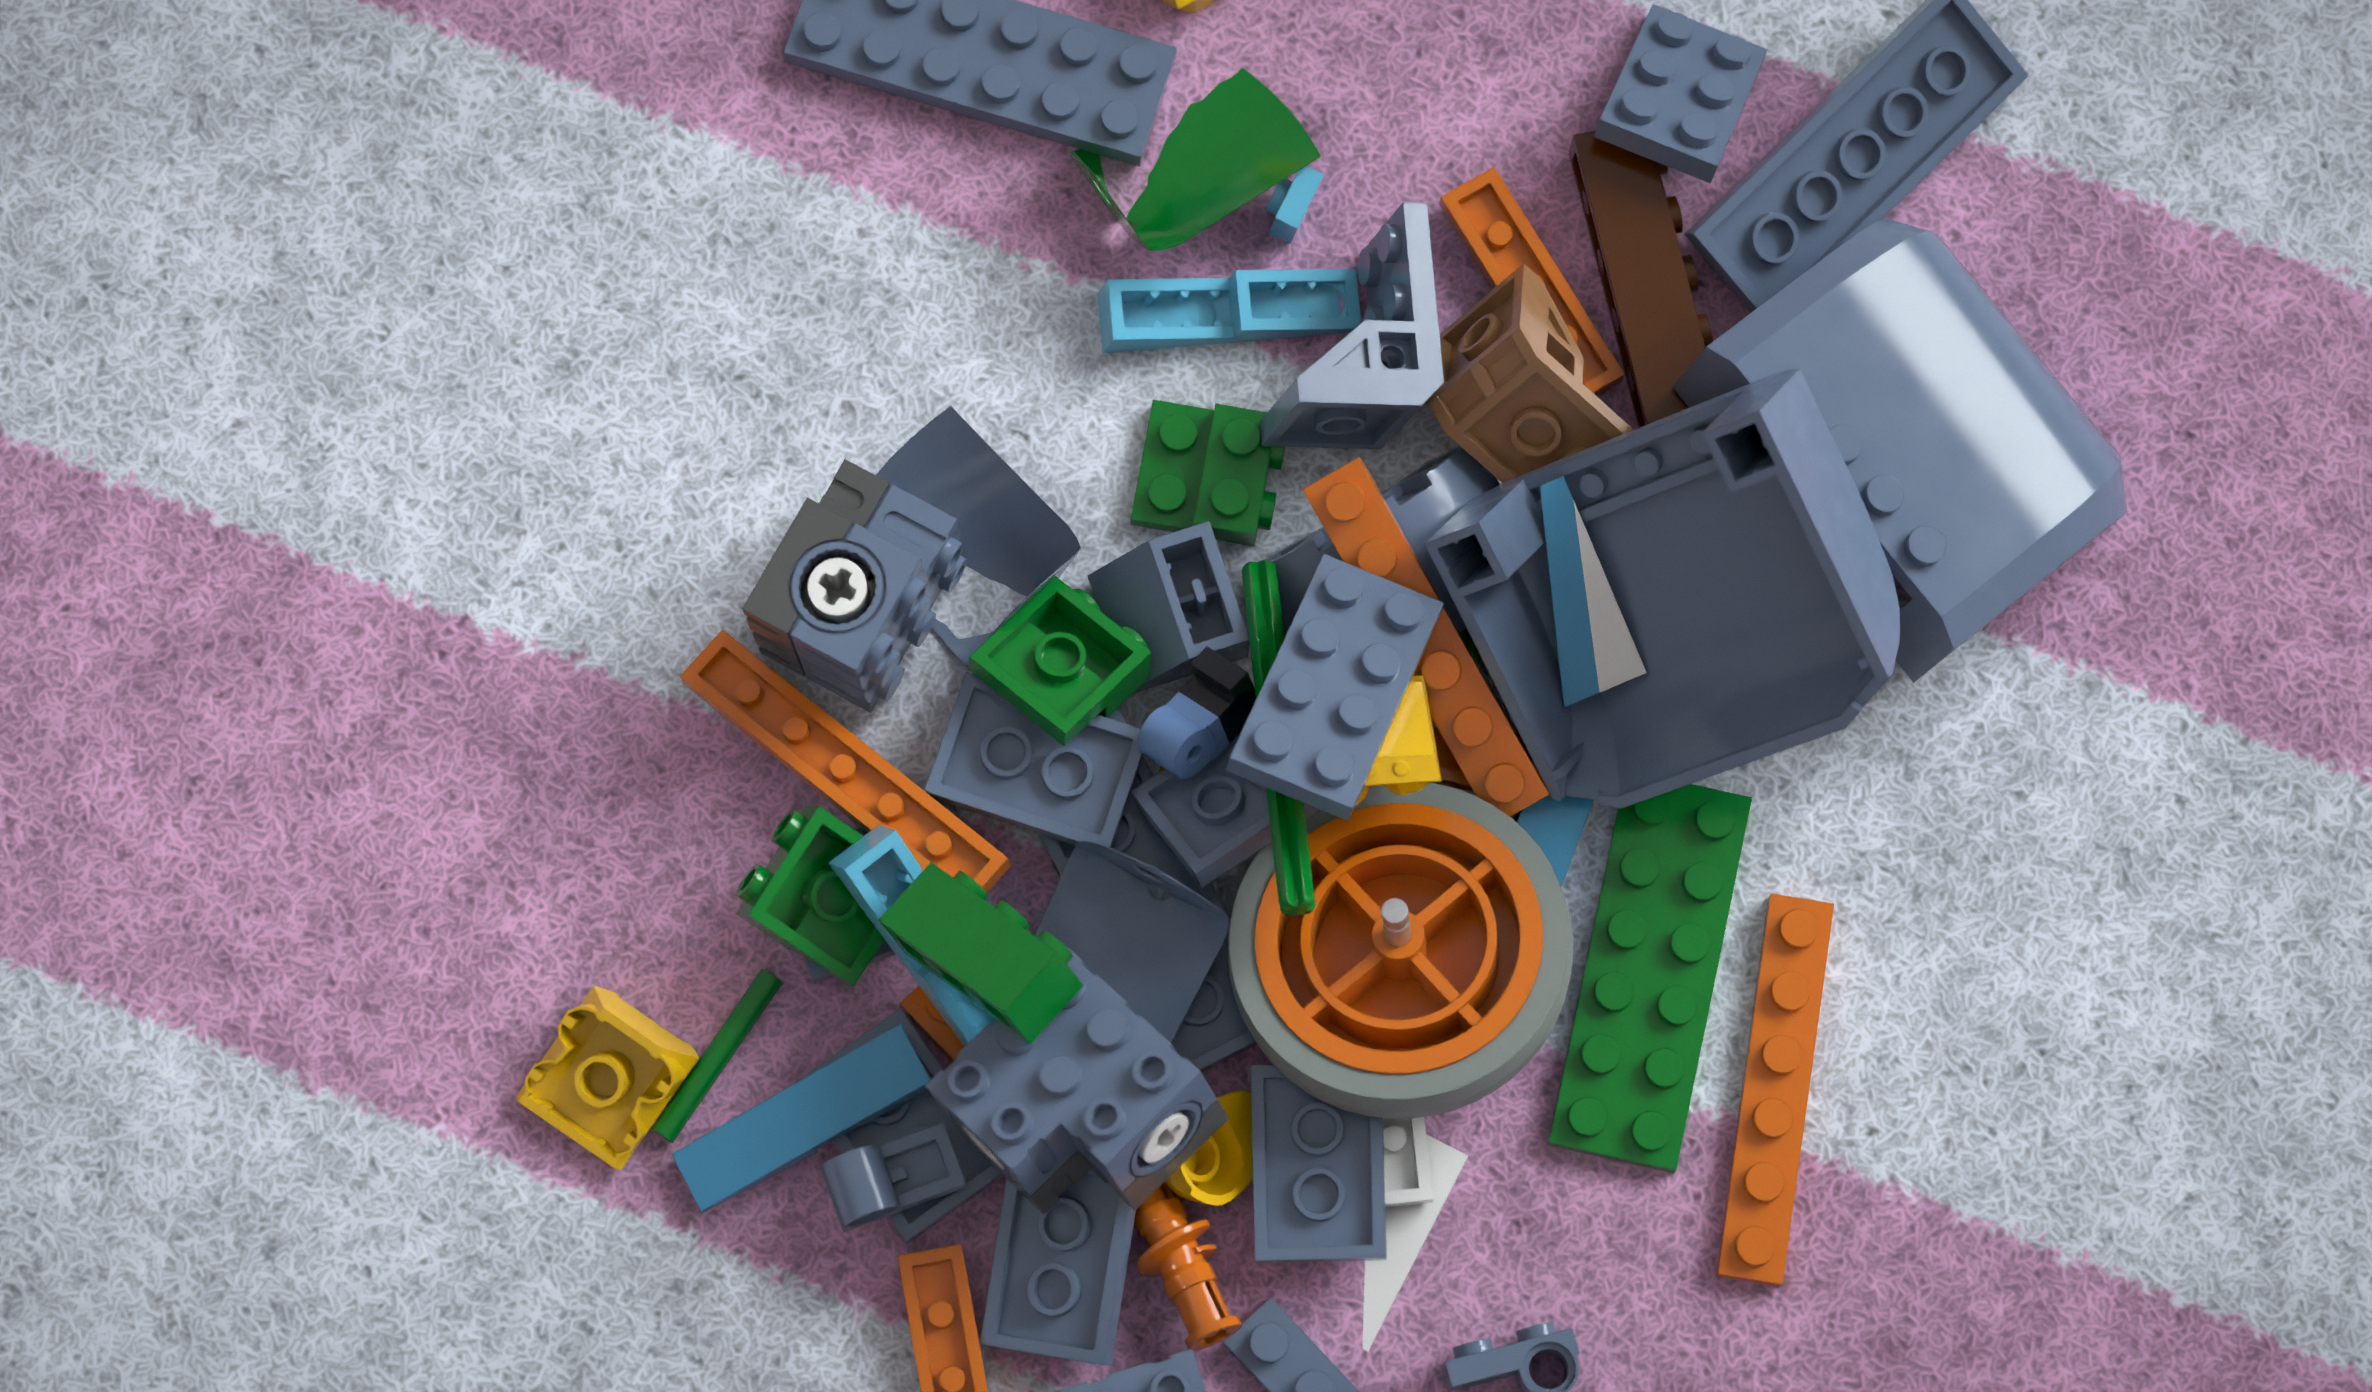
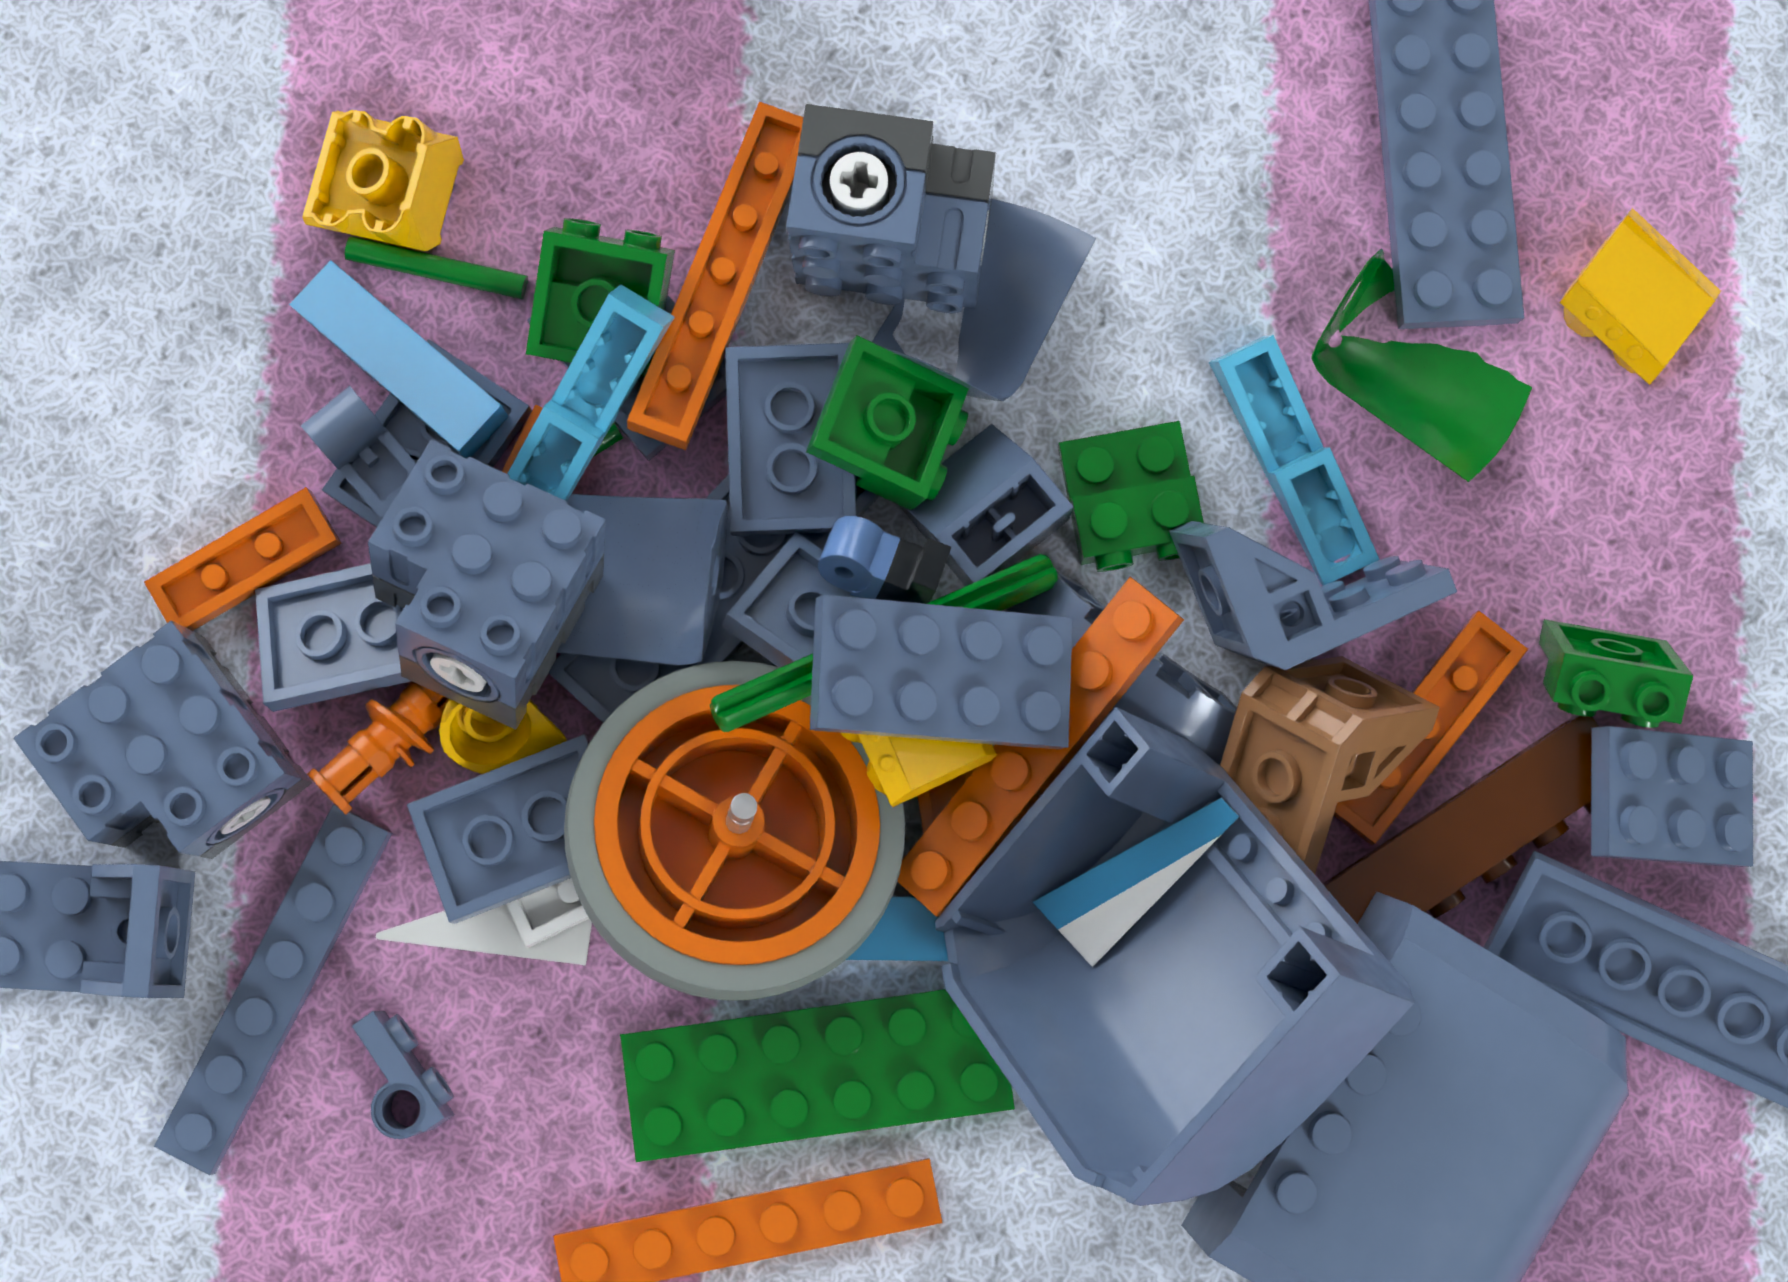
camera: 75 degrees right, 5 degrees up
(983, 950) = (568, 442): green brick -> none
(1291, 202) = (1417, 476): medium azure plate -> none
(1547, 98) = (1614, 673): none -> green plate

